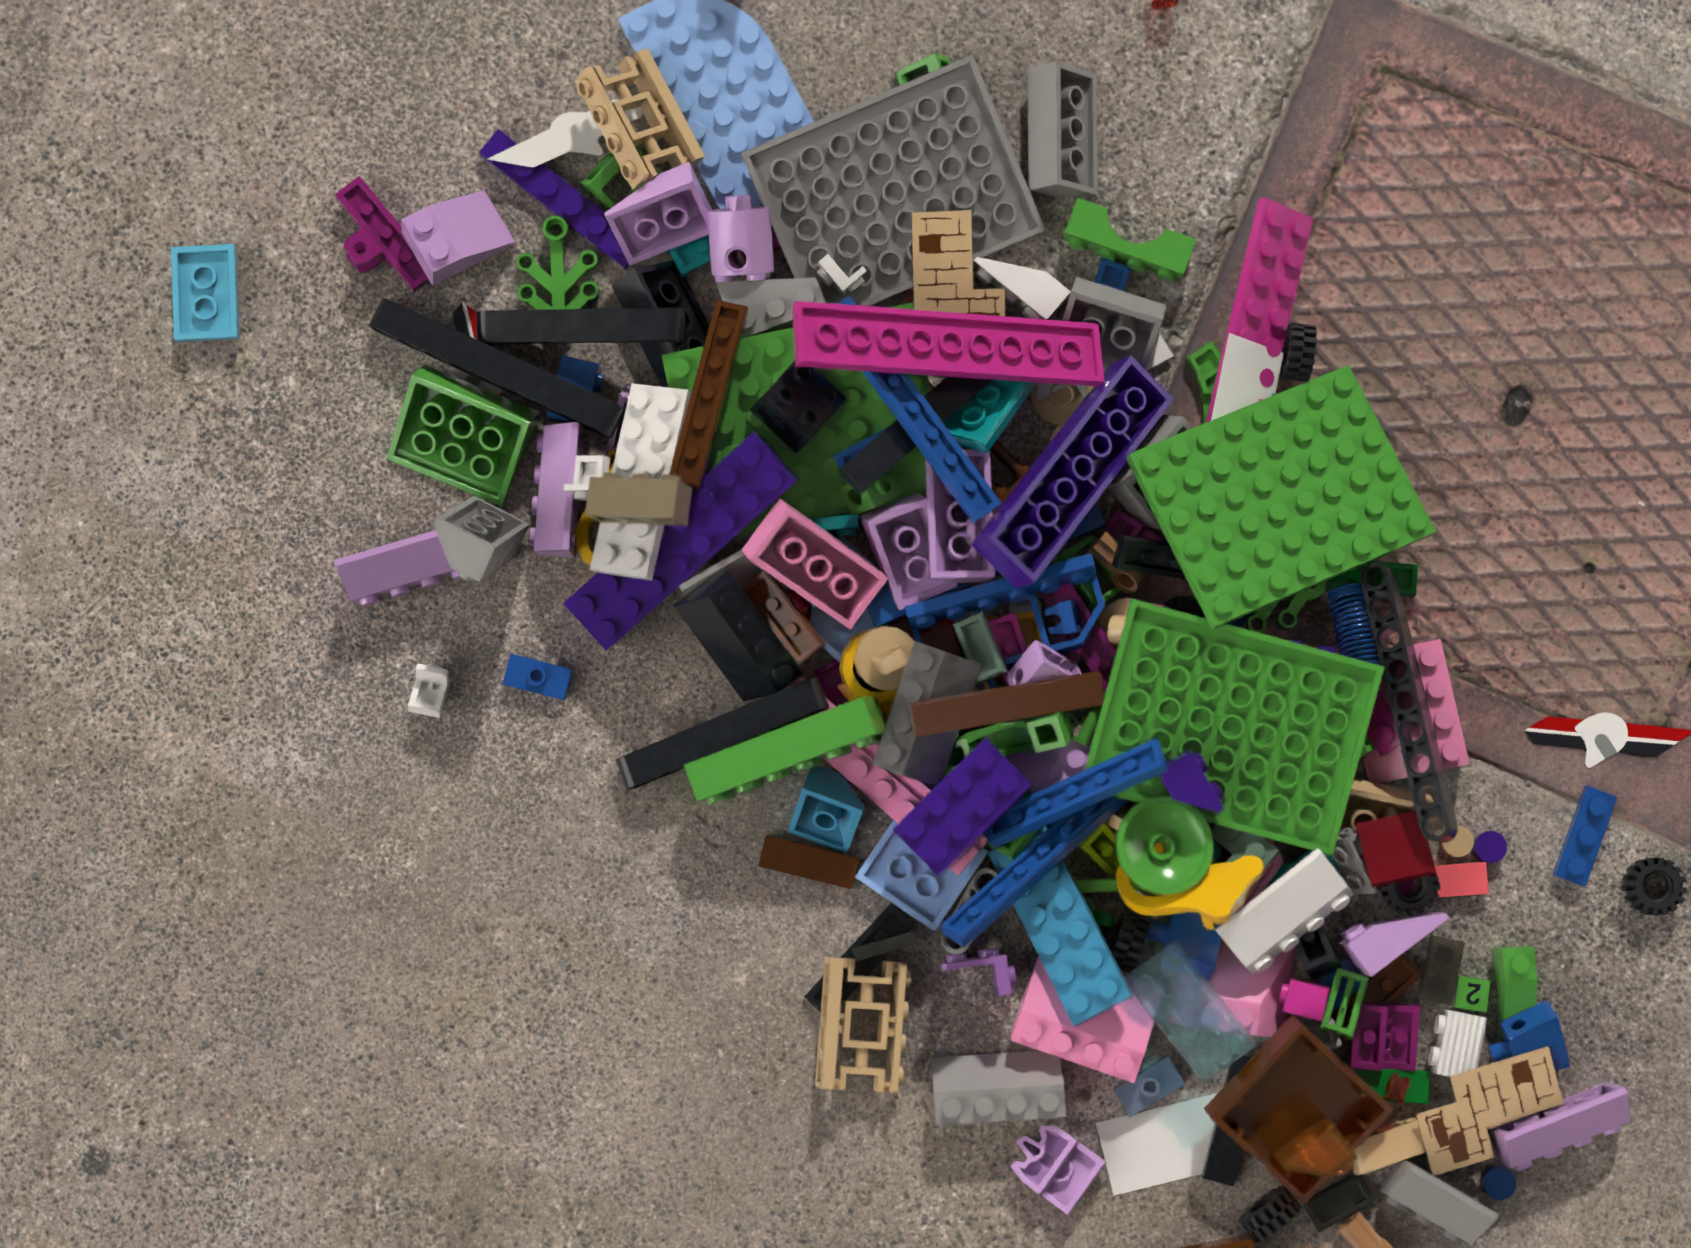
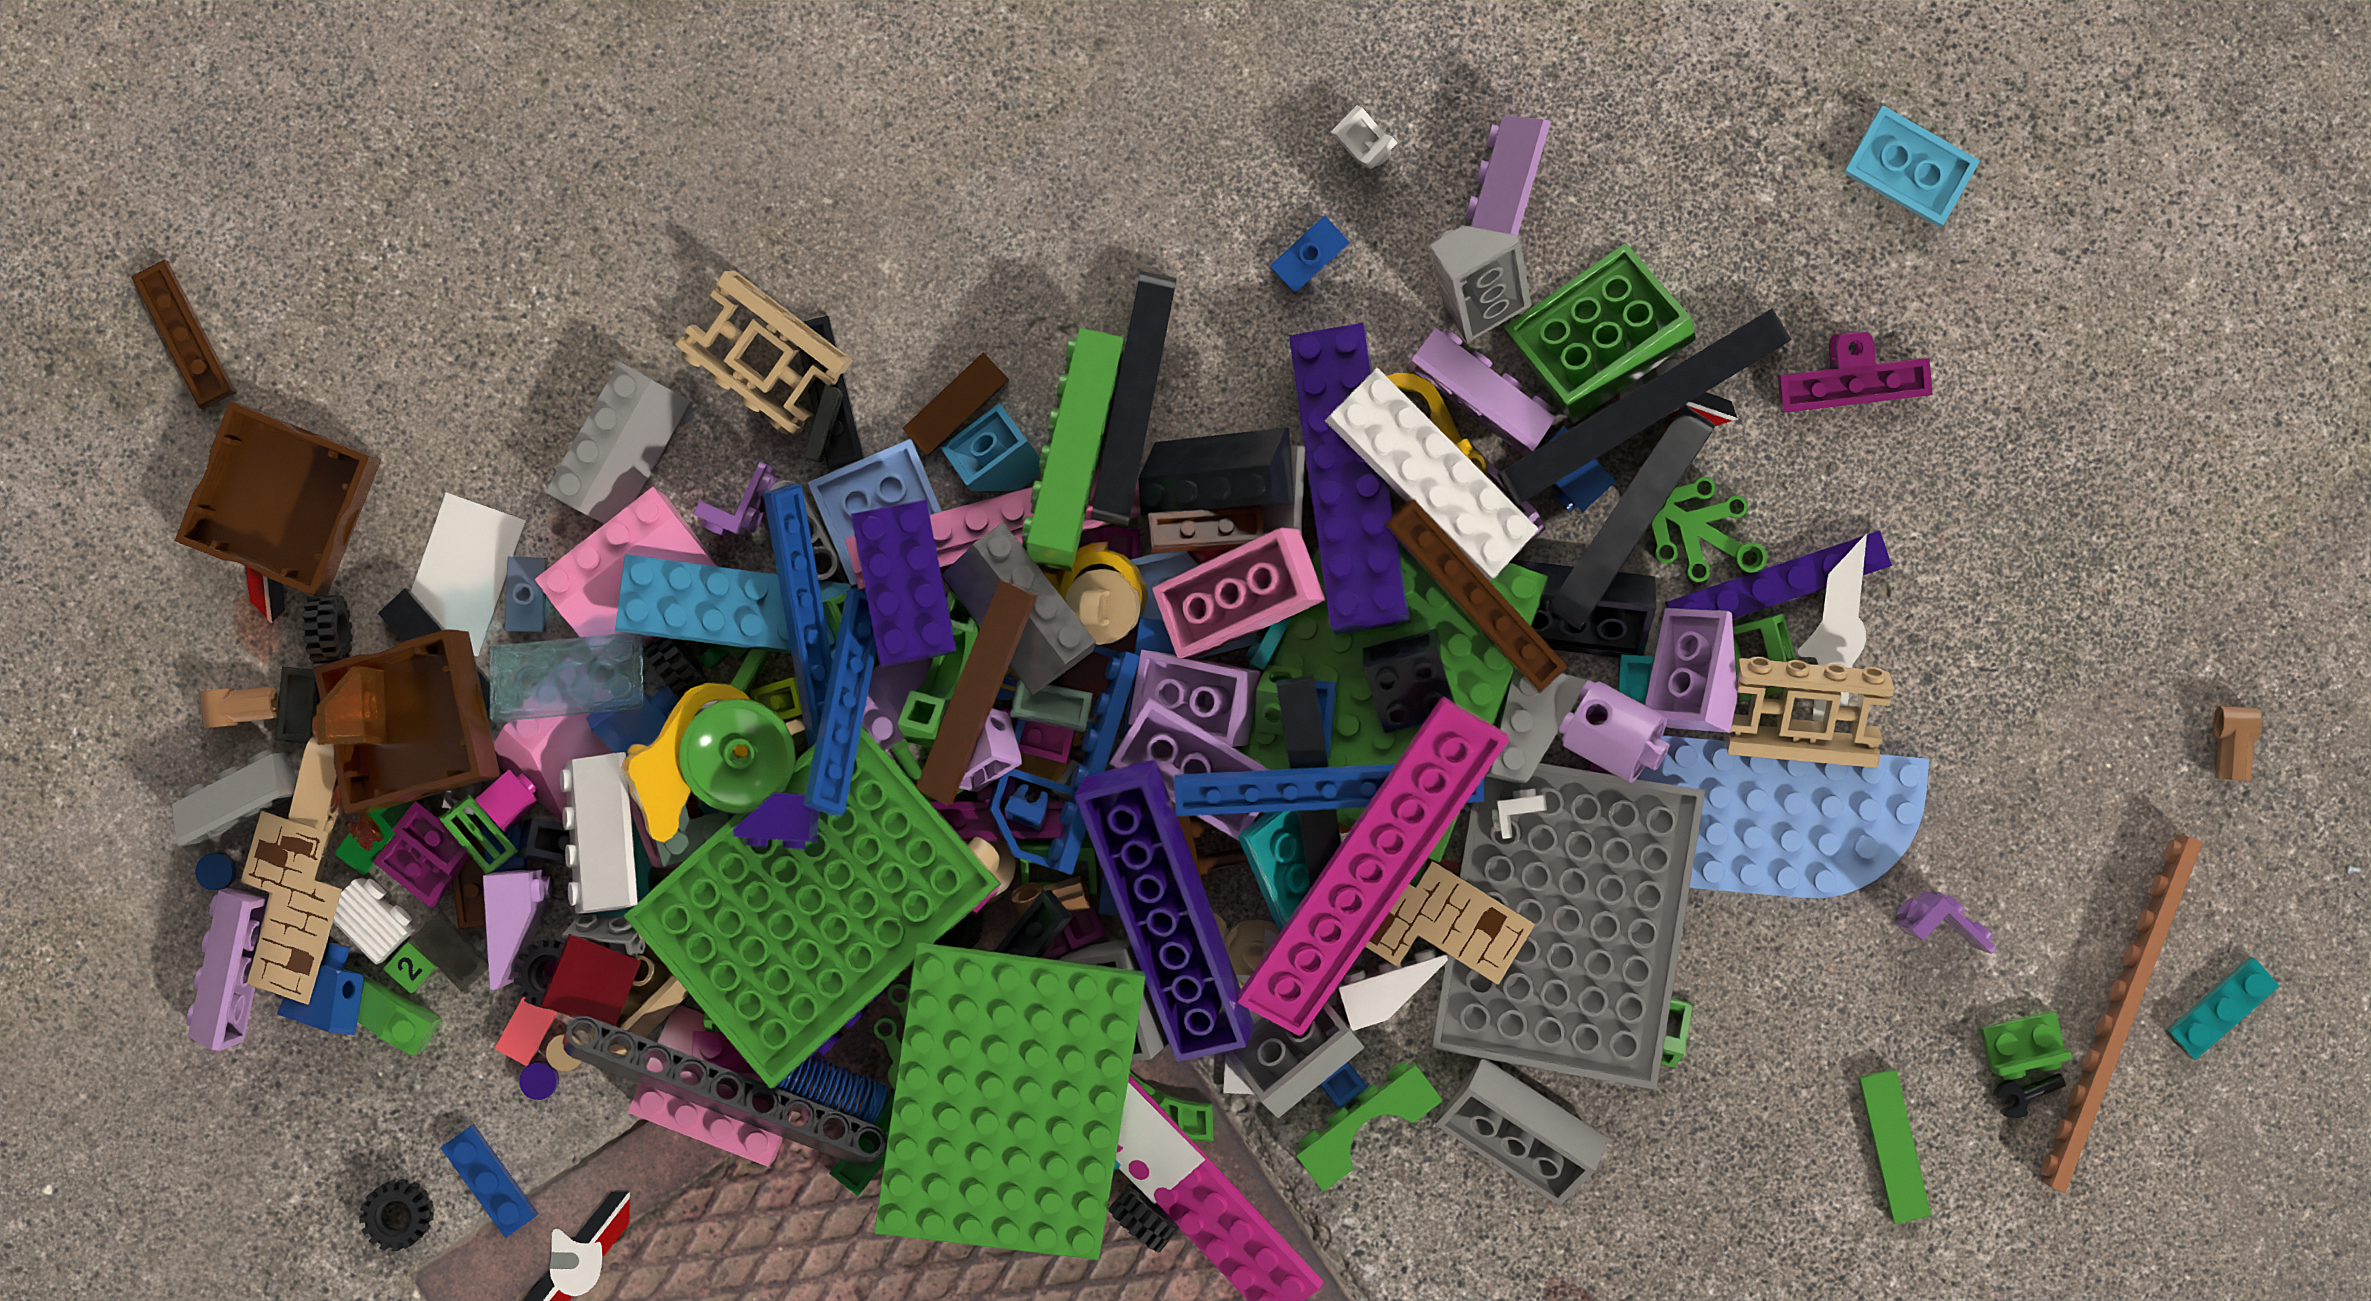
camera: 125 degrees right, 5 degrees up
(455, 235) = (1808, 453): lavender slope -> none
(586, 467) = (1469, 426): white bracket -> none
(638, 499) = (1411, 457): dark tan brick -> none
(1058, 1167) = (505, 454): lavender plate -> none

